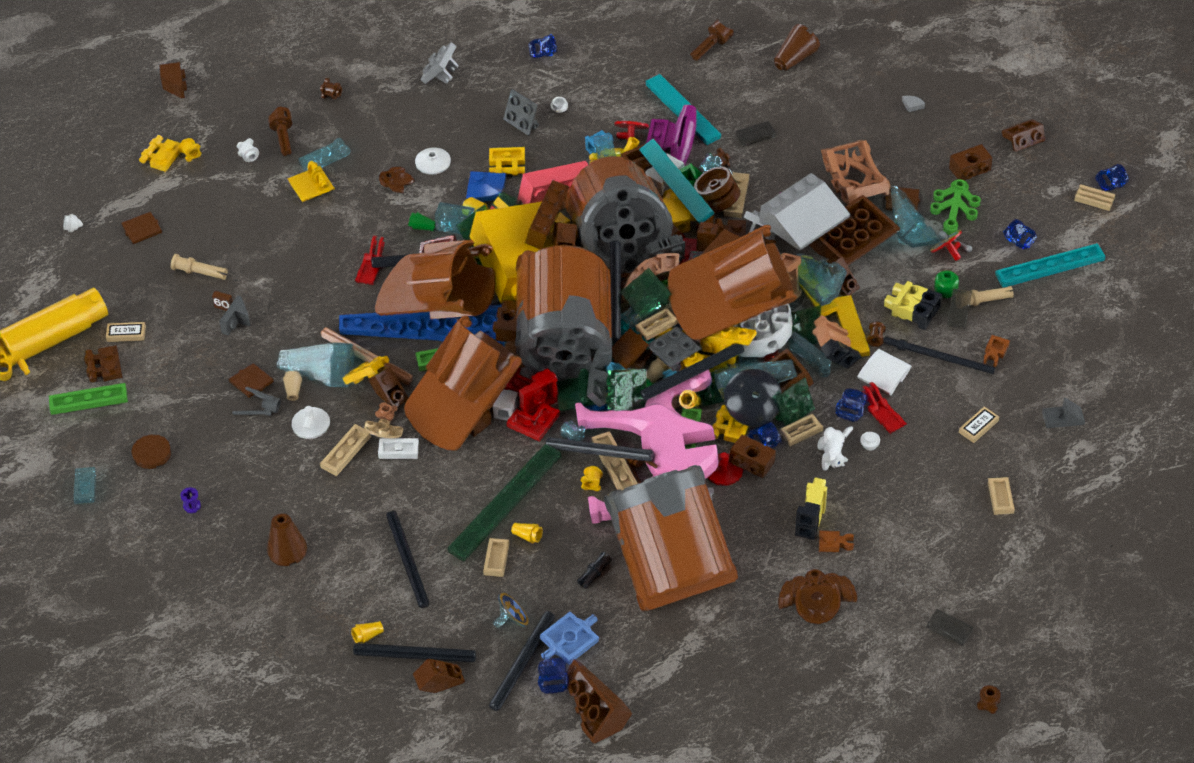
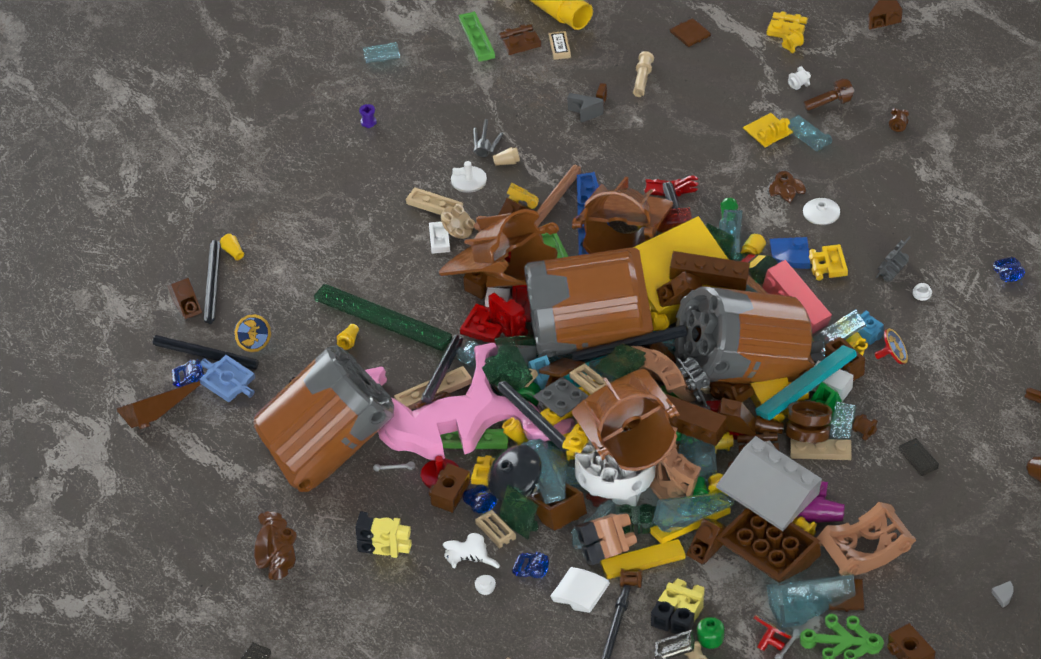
camera: 85 degrees right, 5 degrees down
(151, 451) = (423, 85): reddish brown tile -> none
(251, 377) = (512, 132): reddish brown piece -> none
(285, 541) = (323, 177): reddish brown cone -> none
(320, 362) = (536, 171): clear light blue wedge -> none
(407, 559) = (314, 262): black axle -> none
(438, 63) = (959, 187): light grey plate -> none
(496, 557) = (321, 321): tan tile -> none
(592, 478) = (414, 373): yellow brick -> none
(675, 103) = (942, 392): teal tile -> none
(677, 136) = (890, 385): magenta plate -> none
(831, 541) = (353, 564): dark orange plate -> none
(881, 409) = (529, 593): red arm -> none

